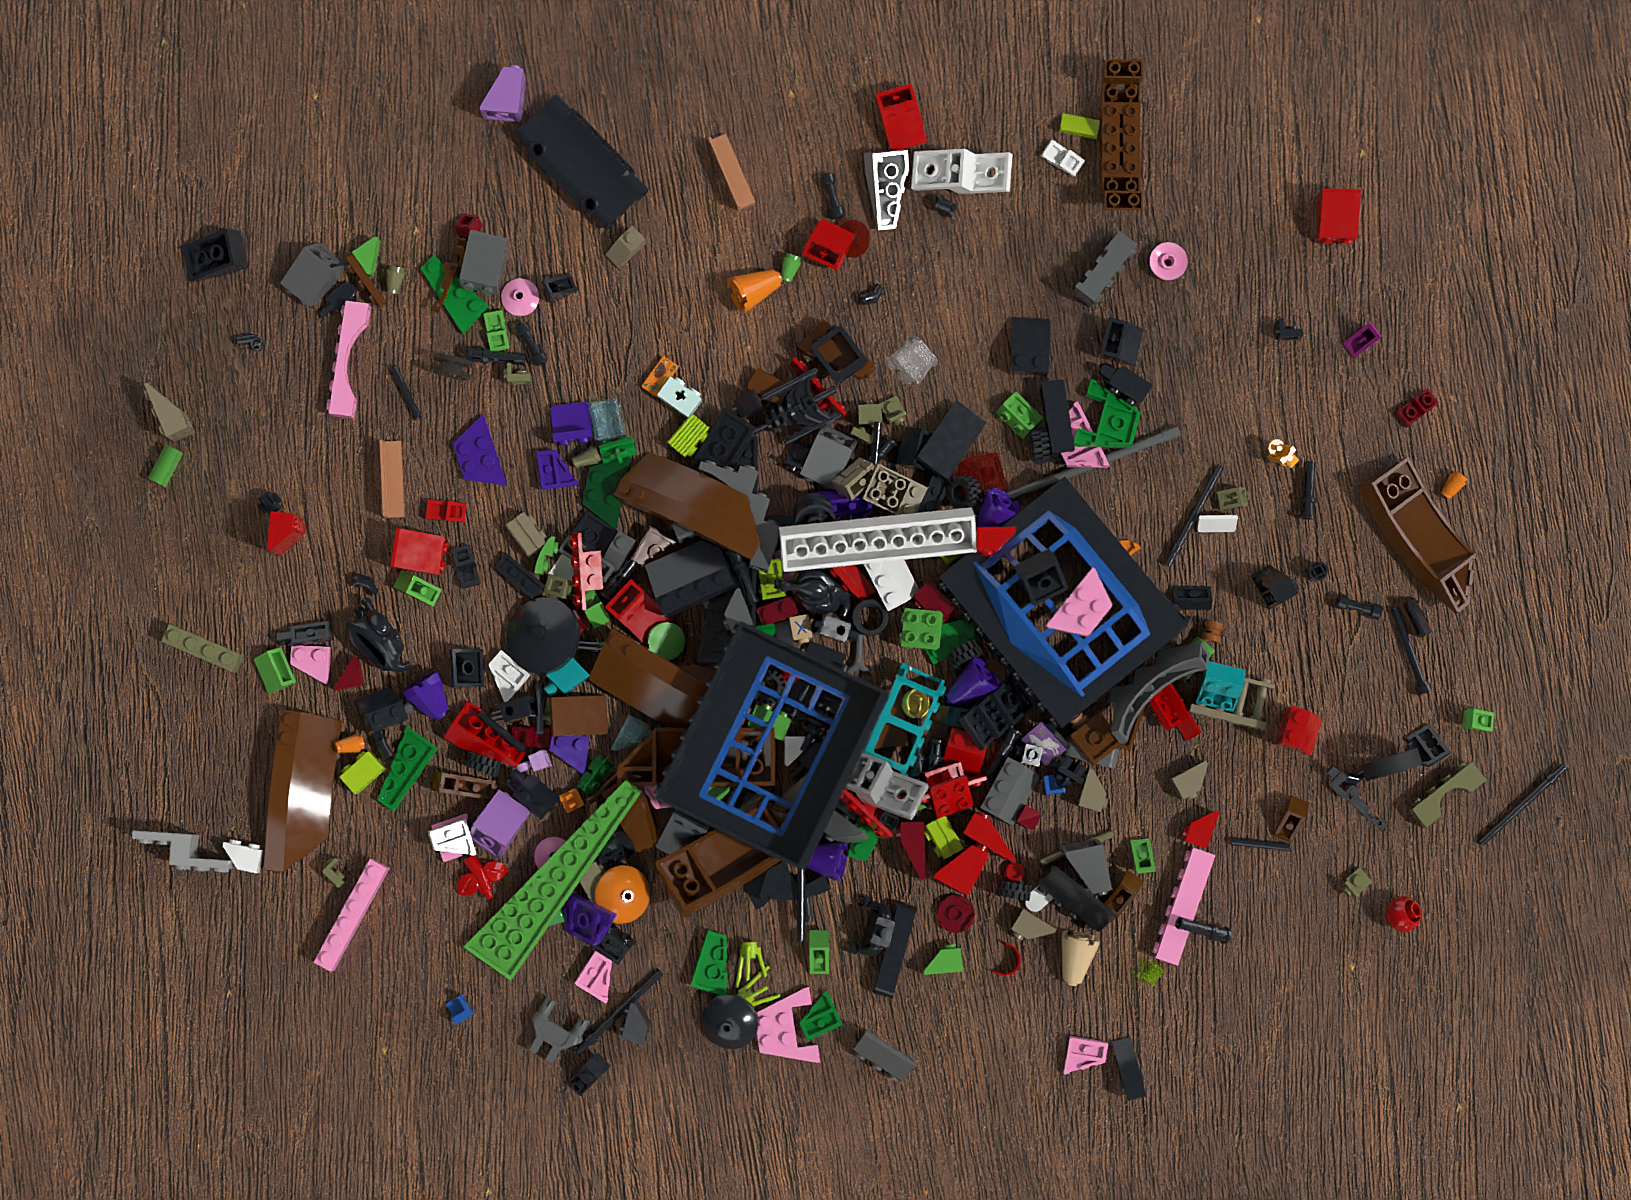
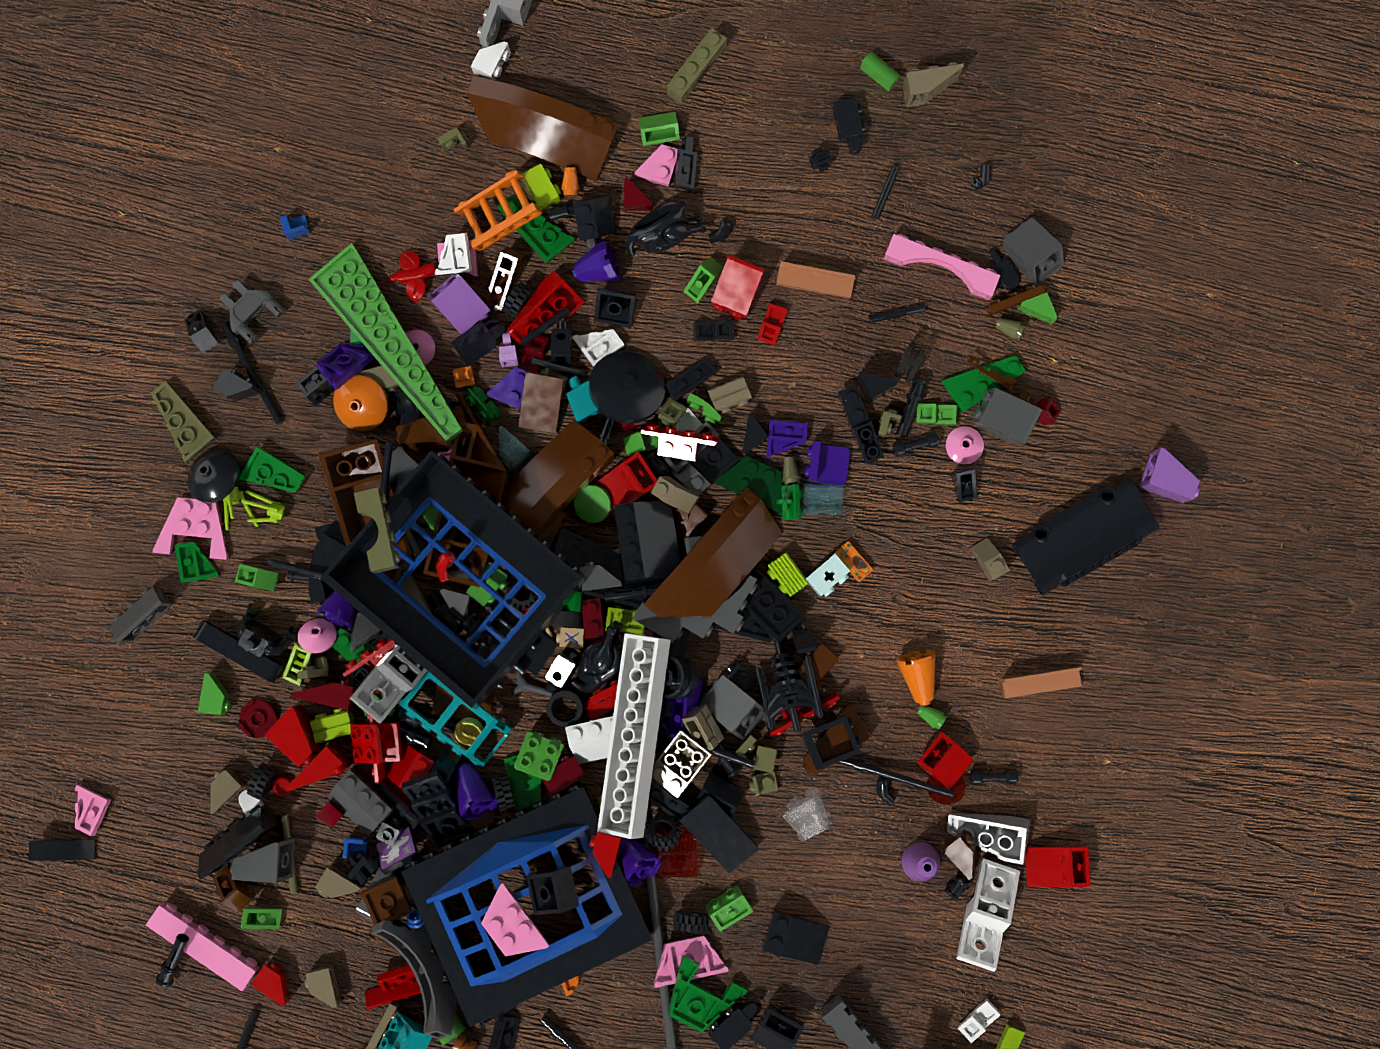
camera: 115 degrees right, 0 degrees up
(215, 255) = (1074, 163): black slope -> none
(226, 484) = (848, 123): none -> black hinge
(284, 532) = (787, 163): red slope -> none
(286, 432) = (885, 192): none -> black bar
(351, 915) = (409, 146): bright pink brick -> none
(404, 789) = (513, 220): none -> orange fence
(478, 455) = (819, 368): dark purple wing -> none
(485, 396) = (874, 385): none -> black slope
(525, 401) = (860, 424): none -> black slope
(559, 502) = (754, 435): none -> black slope
(596, 976) = (290, 359): bright pink wing -> none
(637, 561) = (674, 494): none -> dark tan slope
(686, 1066) = (186, 428): none -> olive wing
(693, 845) = (386, 467): none -> black bar
(722, 838) = (382, 555): none -> olive arch
(762, 756) = (442, 564): none -> red arm
(854, 324) = (860, 766): none -> black bar
(868, 876) = (317, 642): none -> bright pink dish
(876, 885) = (297, 651): none -> lime slope
(892, 866) = (319, 669): none -> olive bracket
(911, 208) = (962, 853): none -> slope
(929, 245) = (916, 857): none -> medium lavender cone
(1017, 965) = (186, 759): red helmet -> none
(1056, 417) = (716, 946): black panel -> none
(1077, 955) = (184, 828): tan cone -> none
(1104, 705) = (414, 919): none -> blue plate
(1152, 974) = (146, 897): clear neon green bush -> none

